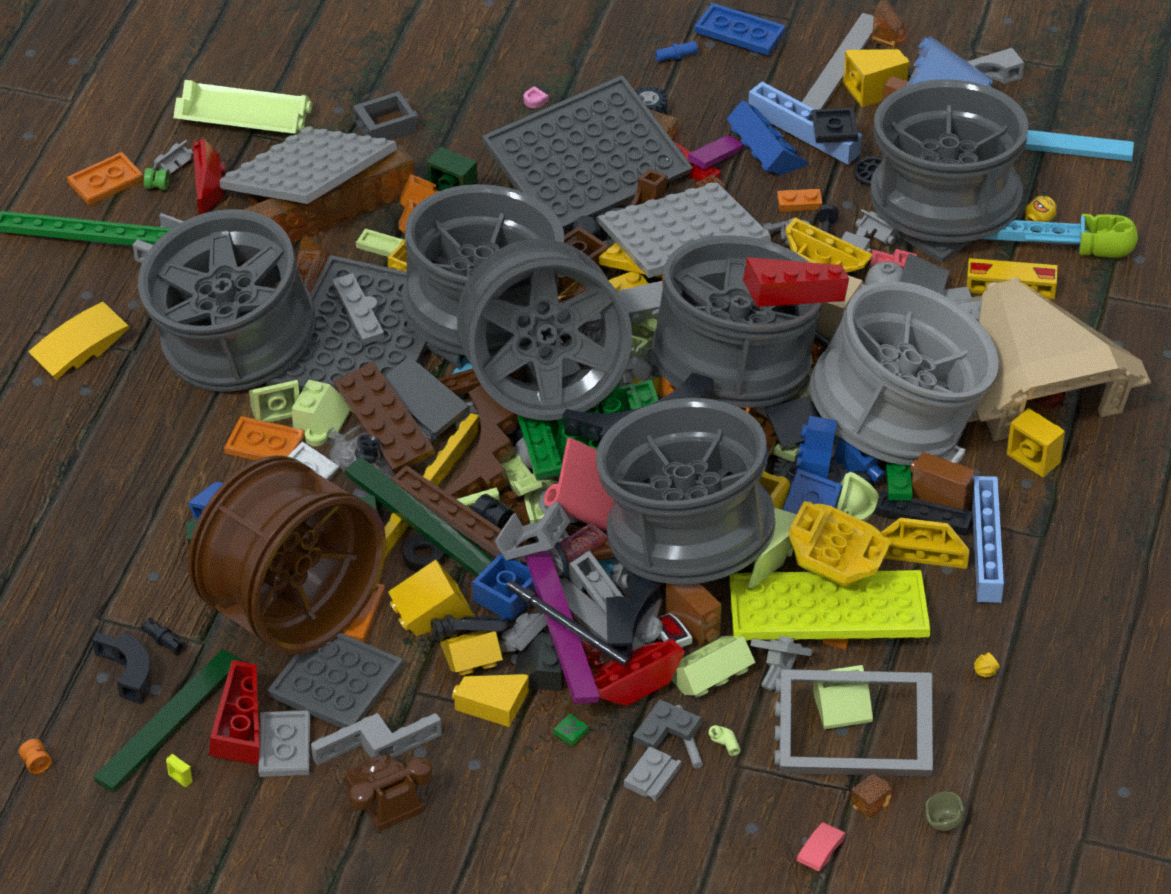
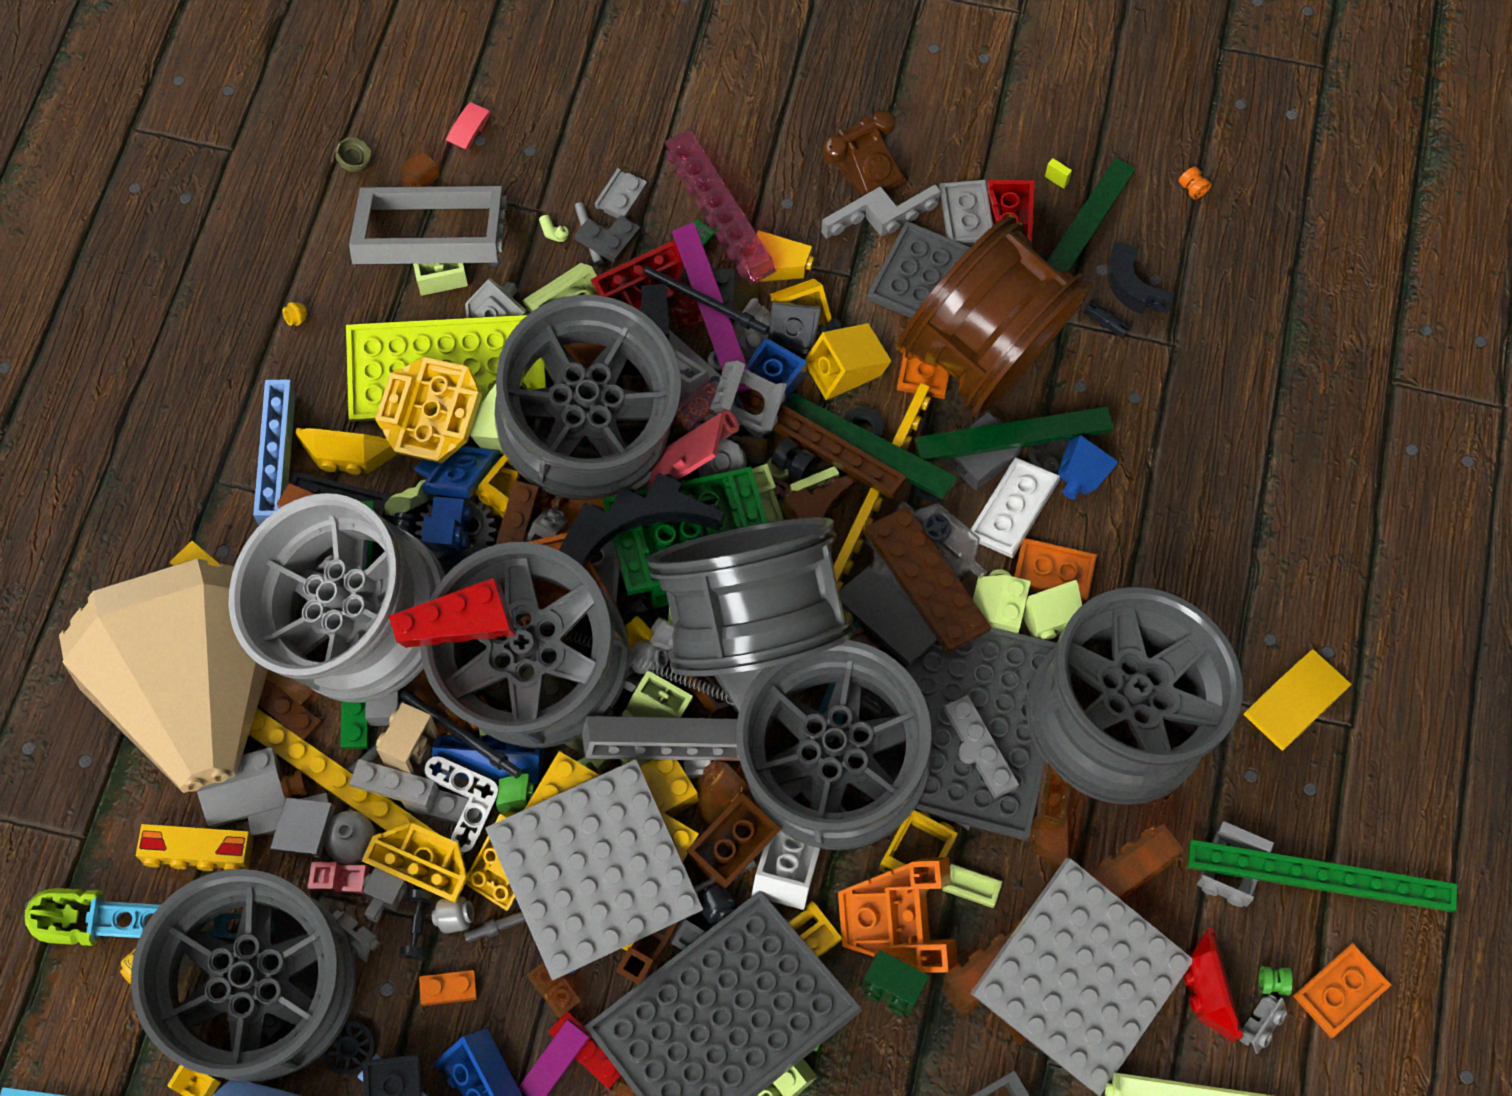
camera: 175 degrees right, 20 degrees up
(519, 685) = (720, 207): none -> clear pink brick

